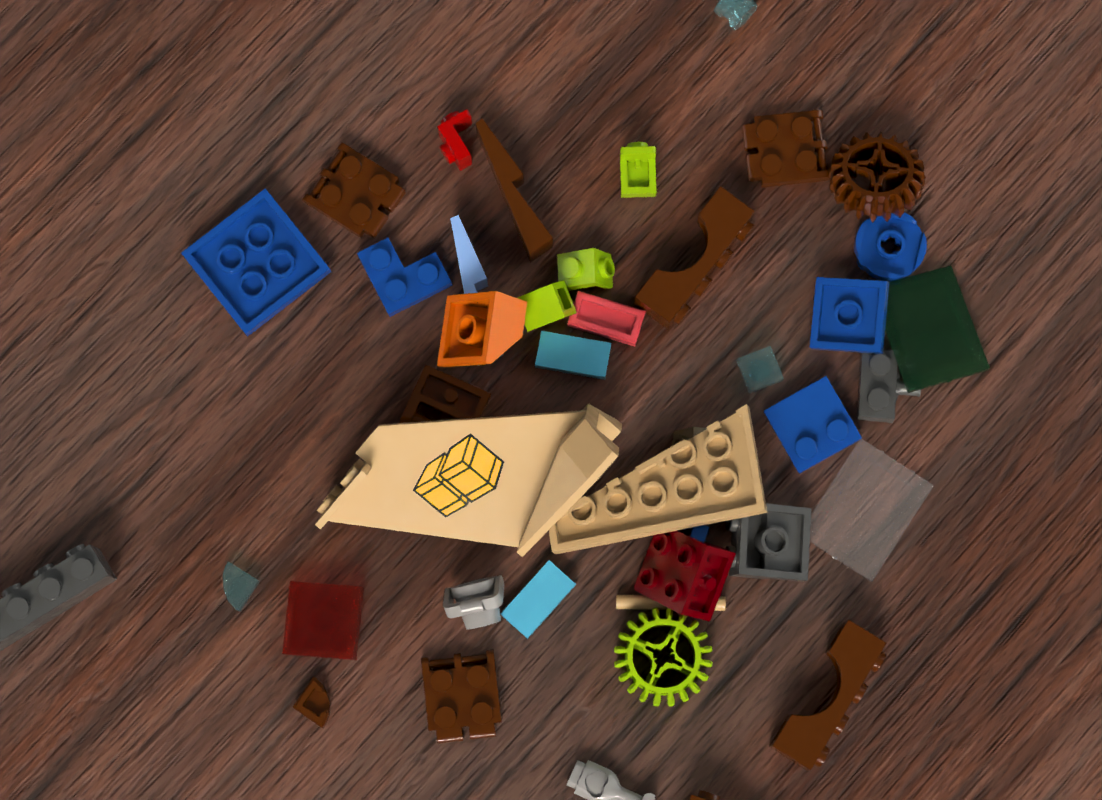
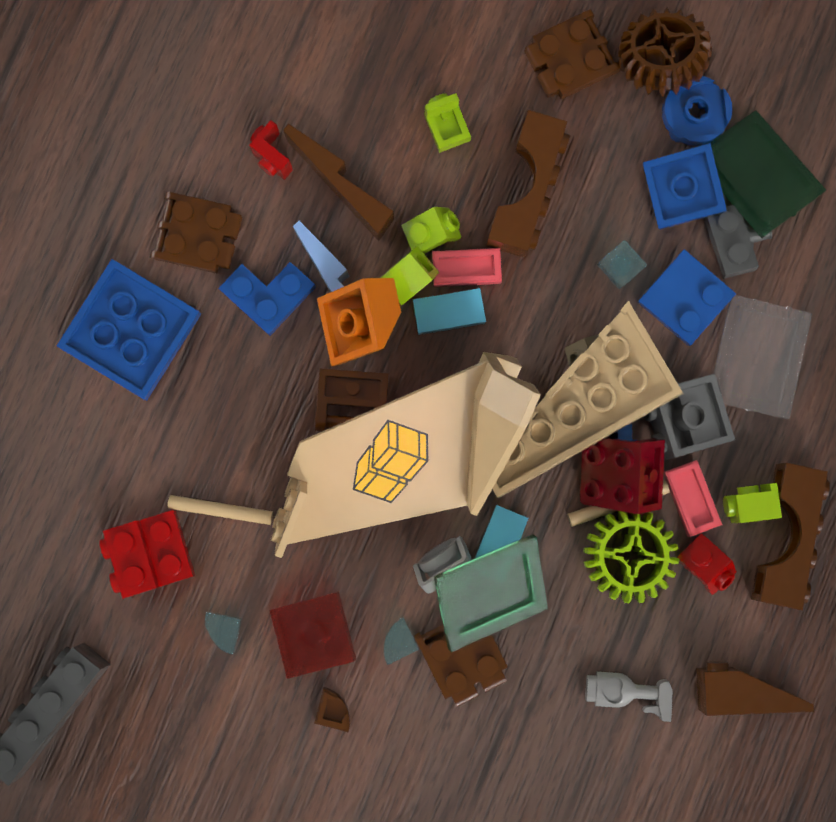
camera: 25 degrees left, 5 degrees up
(192, 484) = (146, 554): none -> red plate
(279, 467) = (220, 509): none -> tan bar
(404, 659) = (399, 642): none -> clear light blue tile
(510, 639) = (491, 592): none -> clear green piece
(737, 695) = (708, 564): none -> red bracket
(746, 624) = (692, 498): none -> coral tile
(802, 650) = (753, 505): none -> lime brick

